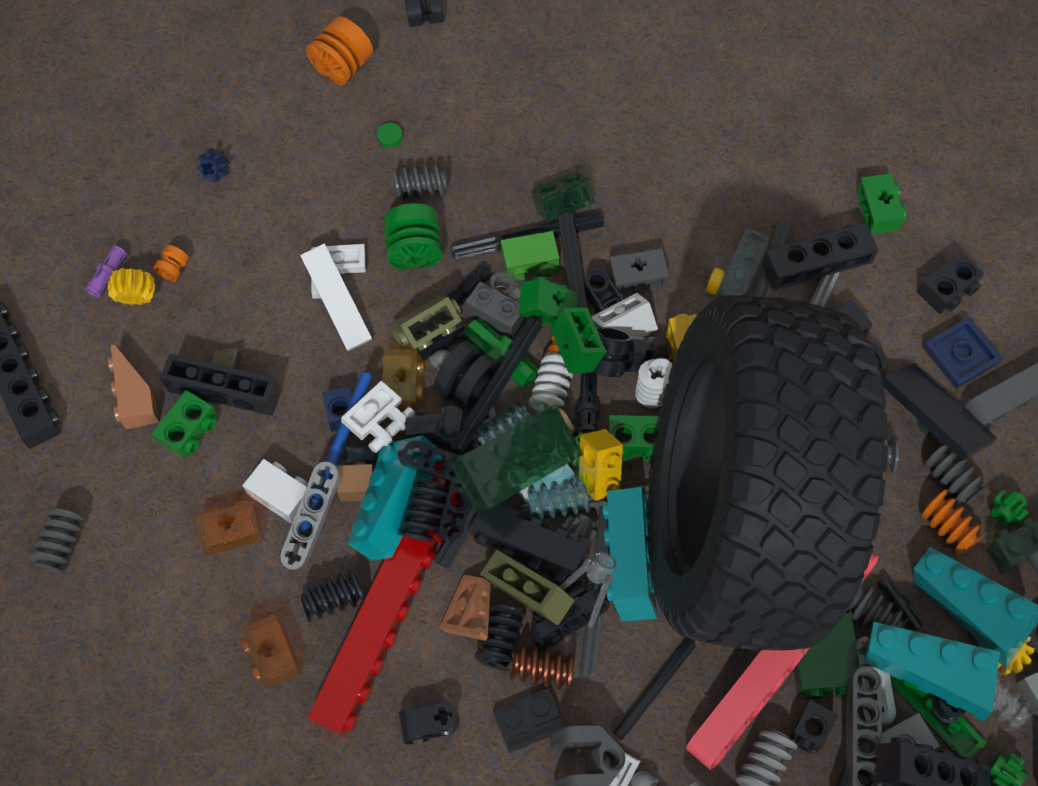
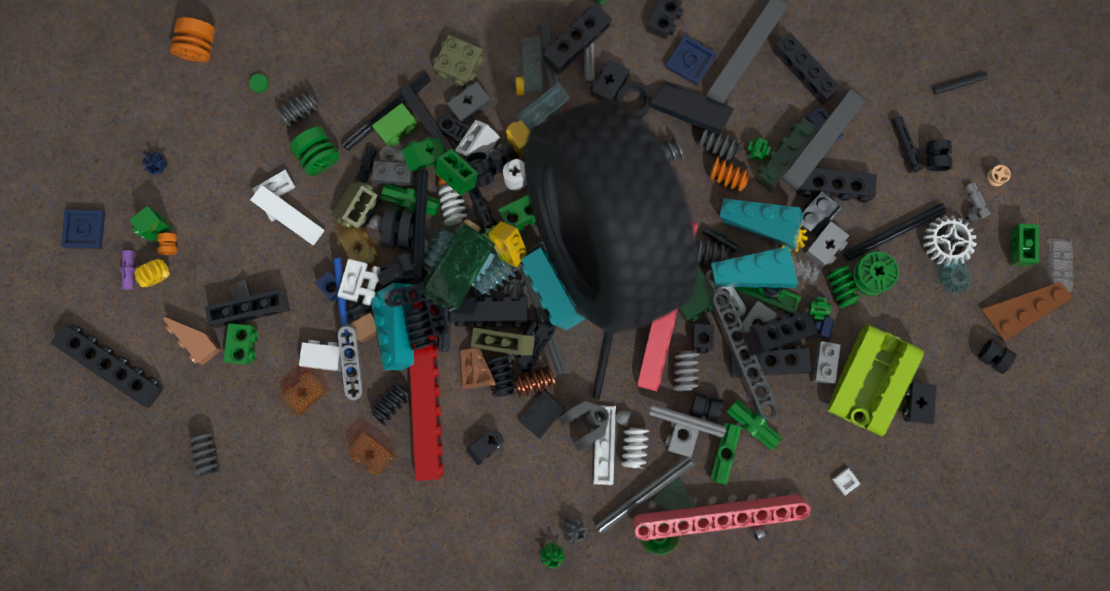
camera: 25 degrees left, 15 degrees up
(84, 201) = (83, 229): none -> dark blue plate
(163, 227) = (149, 224): none -> green brick
(563, 195) = (395, 74): clear green brick -> none
(598, 571) = (540, 313): clear plant -> none
(650, 217) = (458, 61): none -> olive brick

